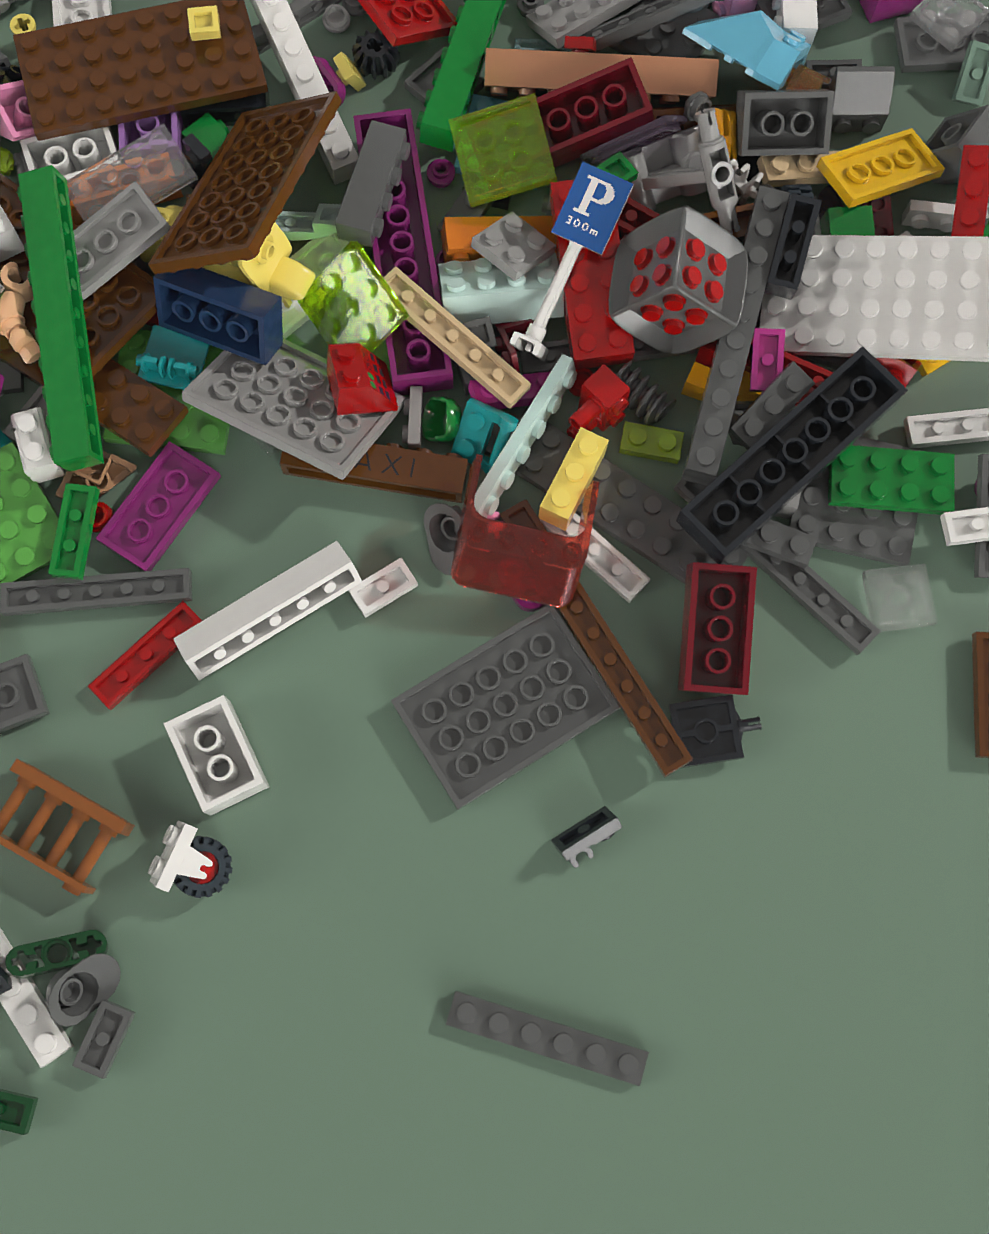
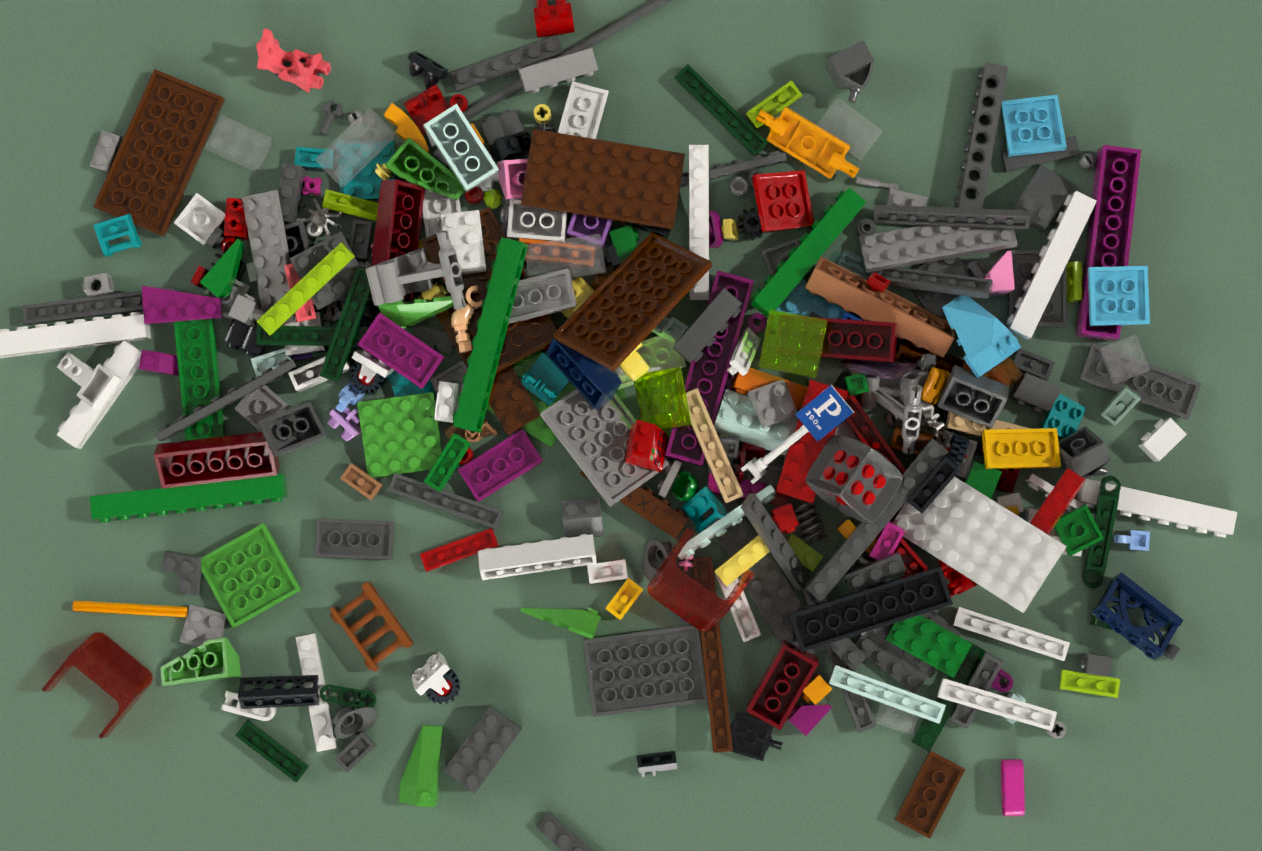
camera: 30 degrees right, 10 degrees up
(204, 23) = (651, 176): light yellow plate -> none
(216, 755) = (475, 628): white brick -> none
(228, 1022) = (421, 777): none -> bright green wedge
(307, 938) = (482, 749): none -> dark grey brick
(311, 523) = (582, 517): none -> dark grey slope
(364, 677) = (575, 620): none -> bright green wedge
(426, 615) = (624, 598): none -> yellow plate
(441, 203) = (744, 352): none -> plate
(609, 427) = (775, 541): none -> dark grey plate
(769, 619) = (816, 689): none -> light orange brick
(775, 663) = (807, 716): none -> magenta slope
(873, 576) = (887, 694): none -> light aqua plate
(909, 113) = (1064, 416): none -> teal hinge
(958, 565) = (929, 730): none -> dark green plate

